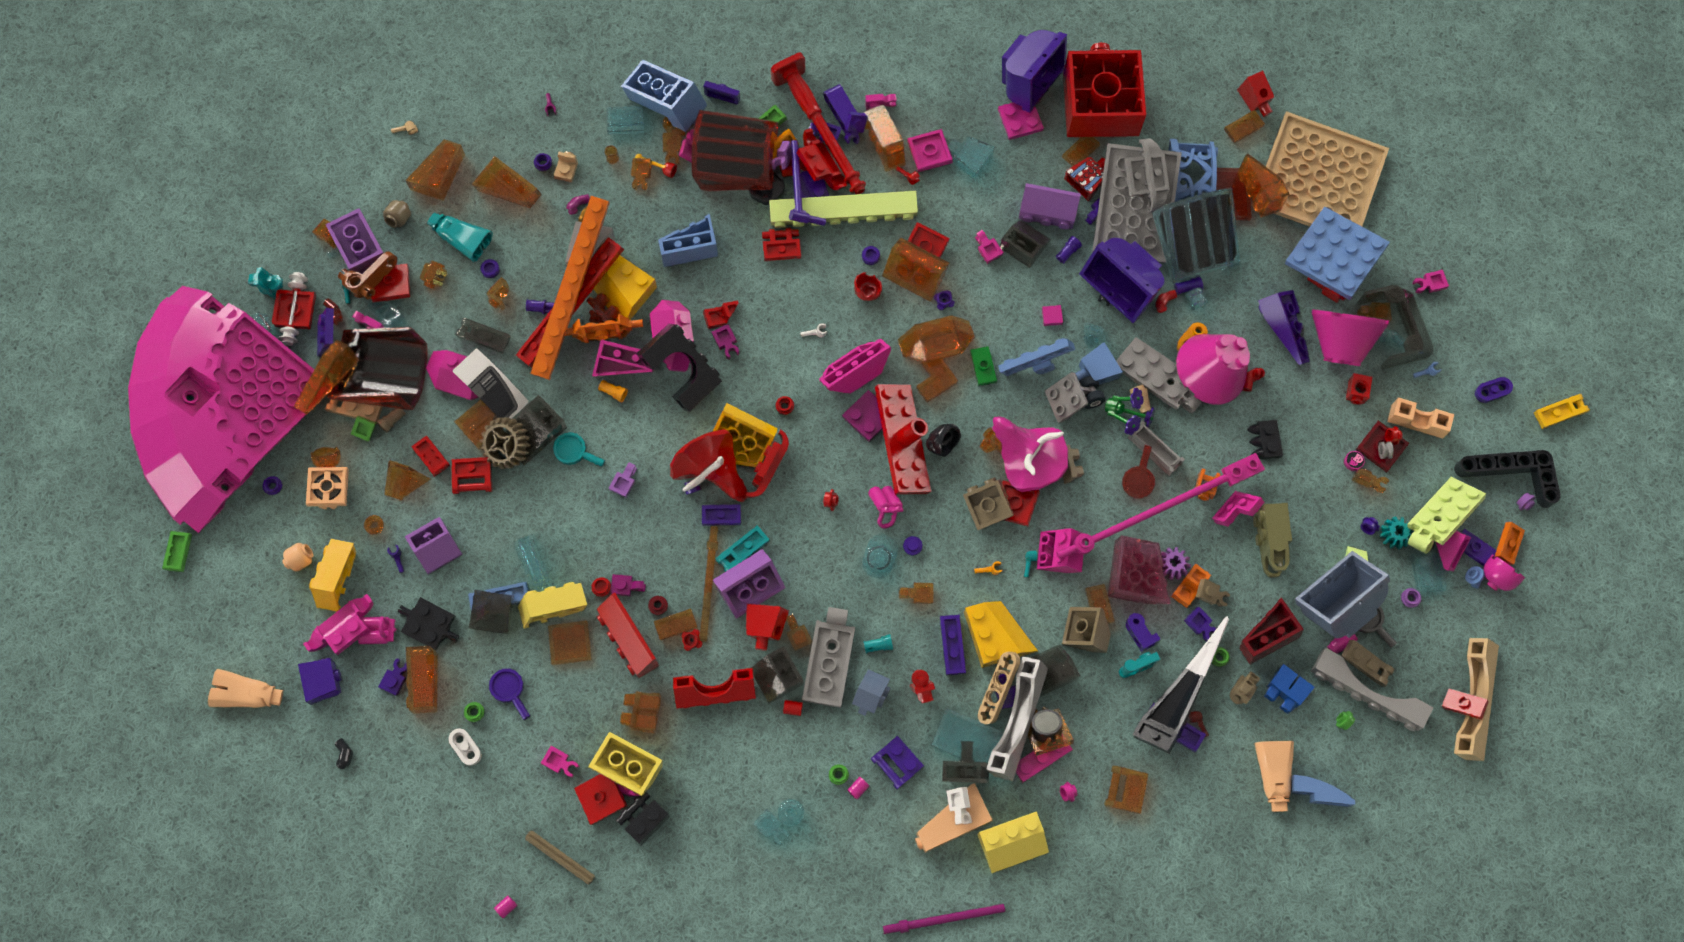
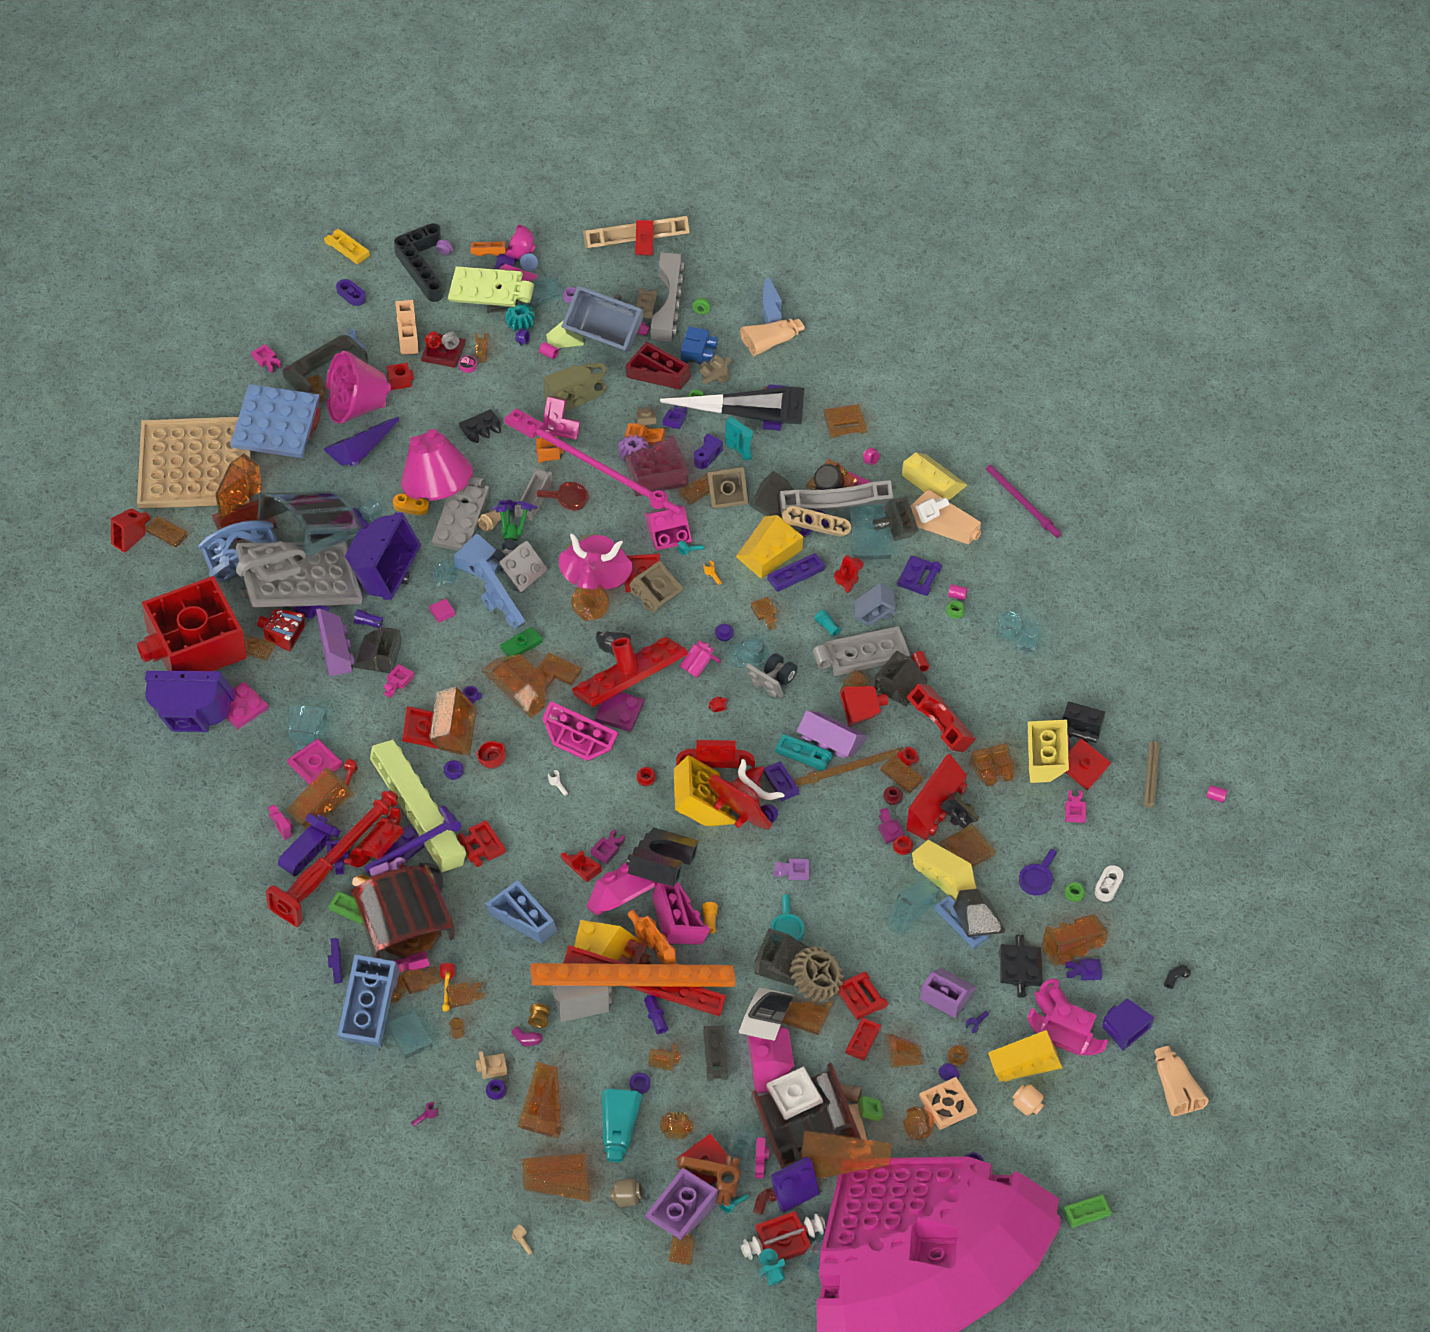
camera: 115 degrees left, 20 degrees down
(359, 507) = (948, 1071): none -> dark purple tile
(408, 374) = (794, 1093): none -> white plate
(599, 655) = (960, 813): none -> black hips
(830, 549) = (774, 669): none -> plate
(1341, 542) = (549, 350): none -> dark pink hinge

